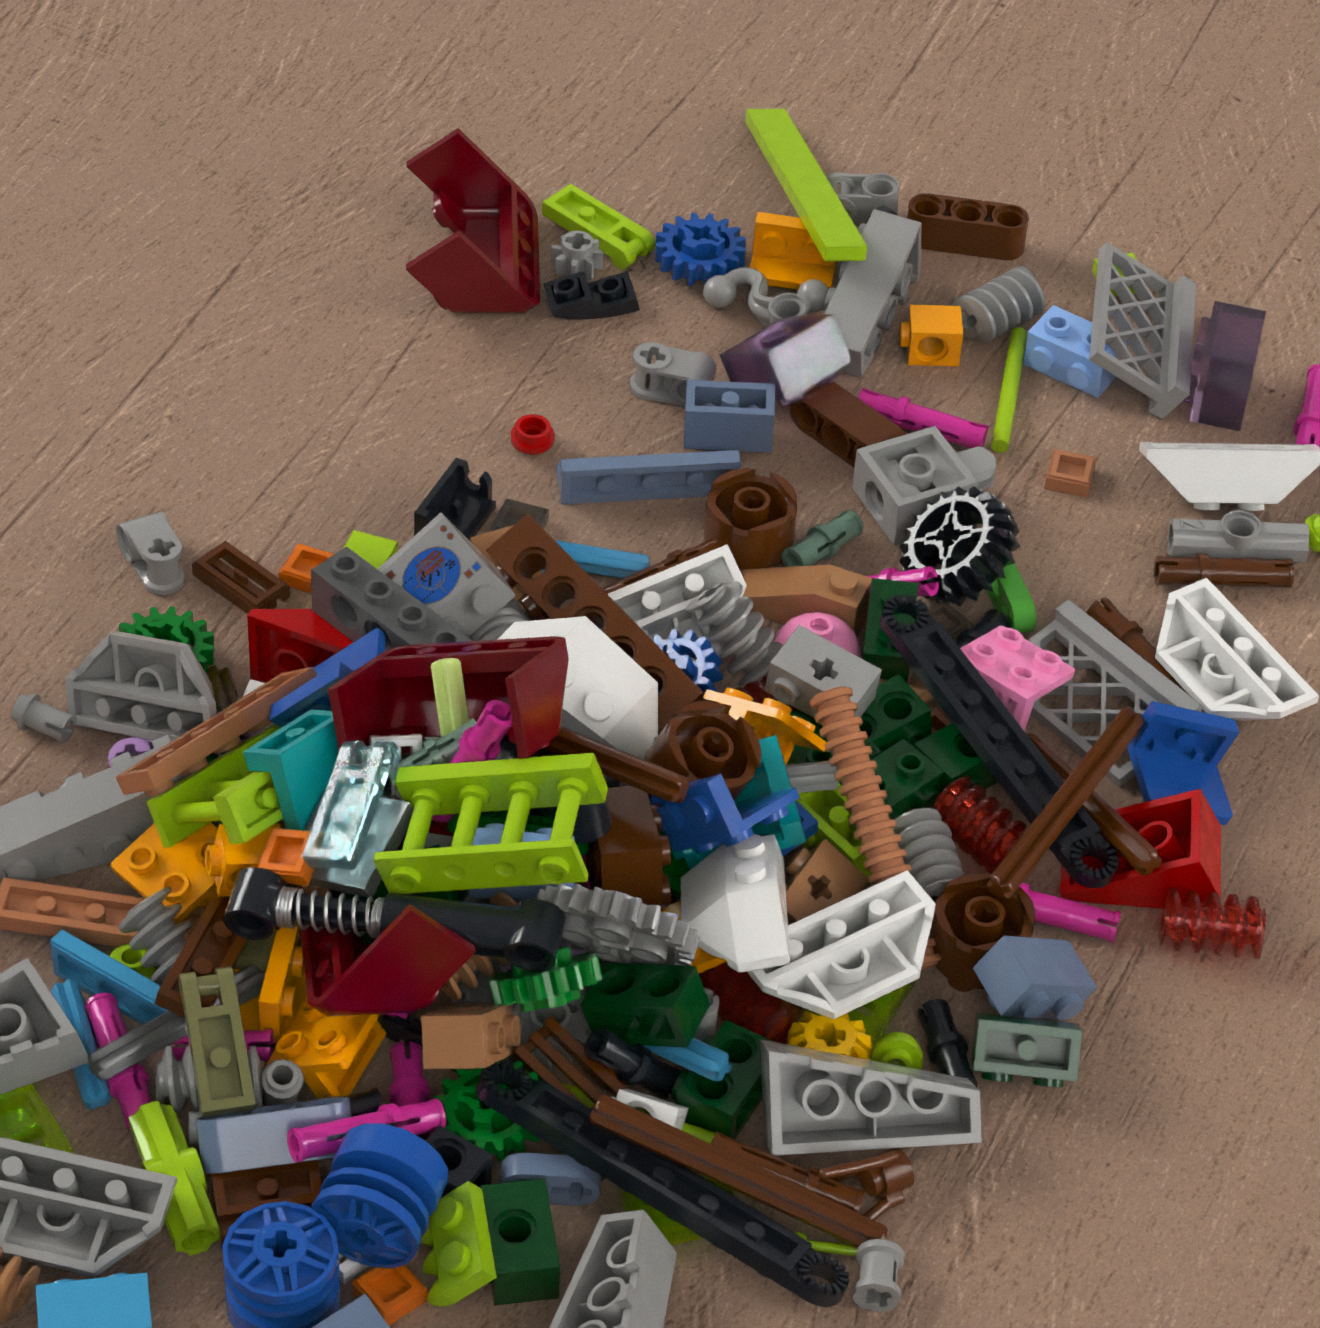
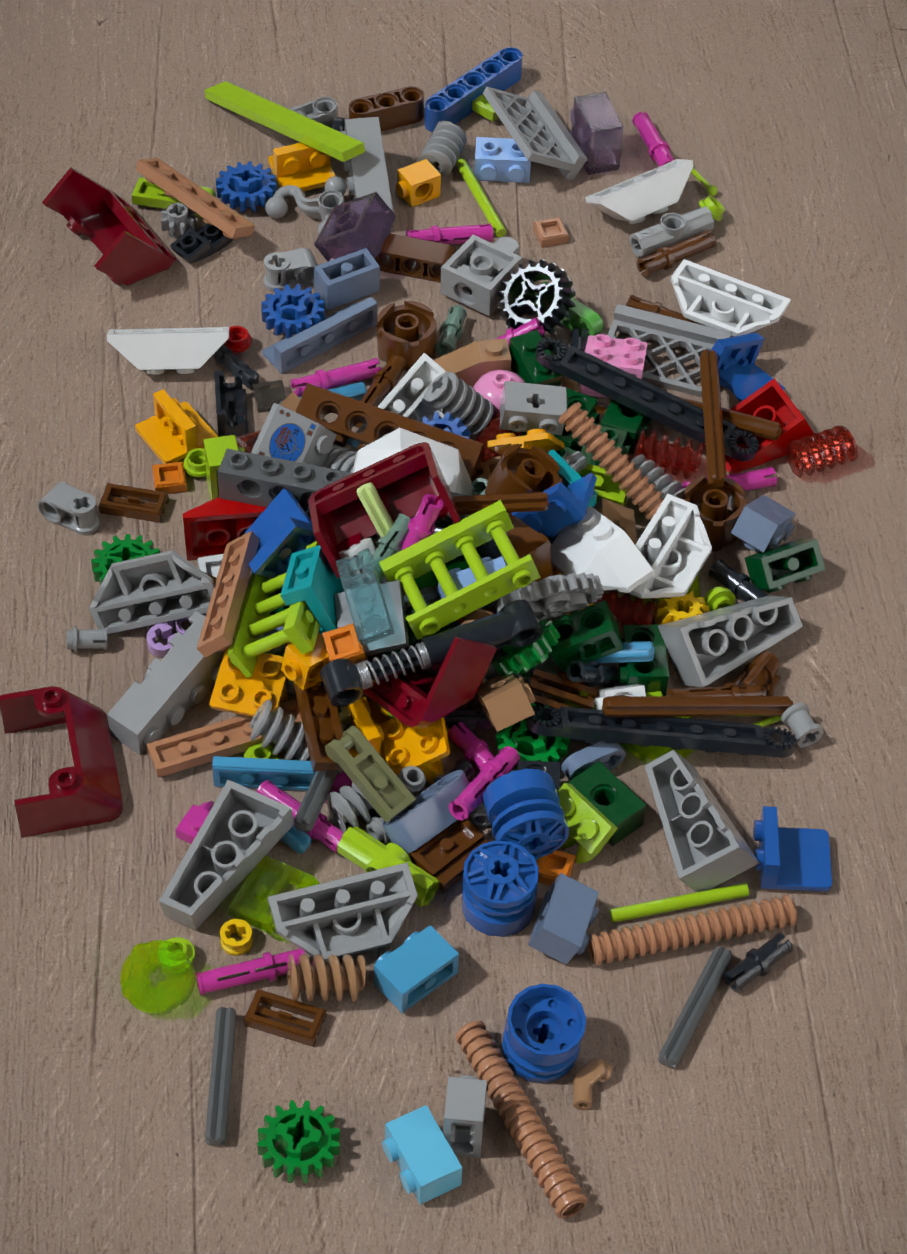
camera: 30 degrees left, 5 degrees up
(360, 507) = (173, 428): none -> light orange bracket
(426, 405) = (168, 347): none -> white wedge
(505, 467) = (235, 364): none -> black axle
(612, 235) = (195, 198): none -> nougat plate
(617, 535) = (337, 376): none -> dark pink pin
(631, 426) = (290, 310): none -> blue gear
(1153, 236) = (456, 99): none -> blue beam

